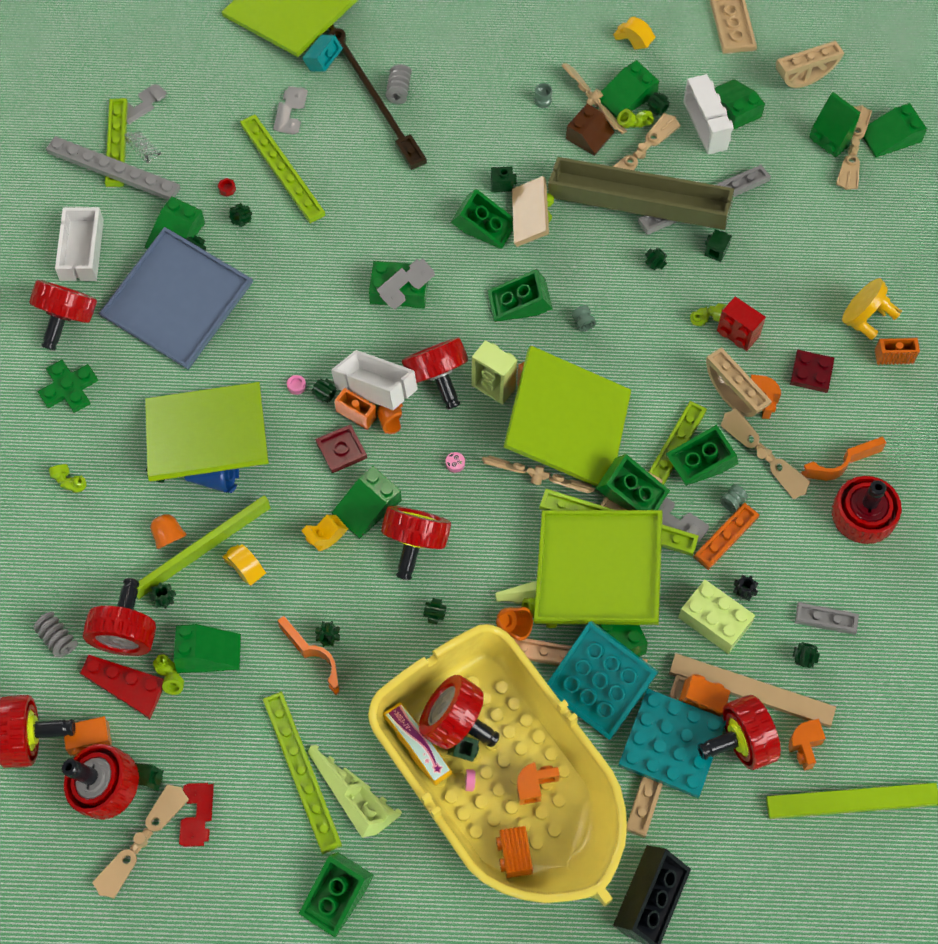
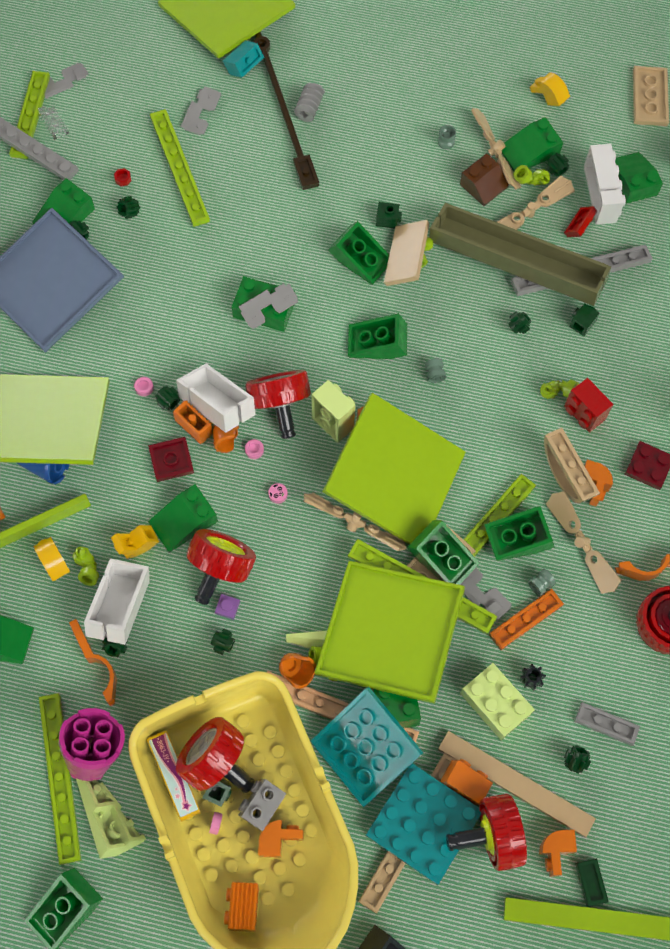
camera: 10 degrees right, 5 degrees up
(285, 572) = (88, 574): none -> lime arm
(322, 590) = (117, 606): none -> white piece
(330, 727) = (90, 743): none -> dark pink cone
(421, 424) = (254, 449): none -> bright pink tile
(430, 578) = (227, 607): none -> medium lavender plate
(511, 752) = (264, 806): none -> light grey brick
(693, 154) = (580, 221): none -> red plate
(845, 767) = (591, 882): none -> dark green tile

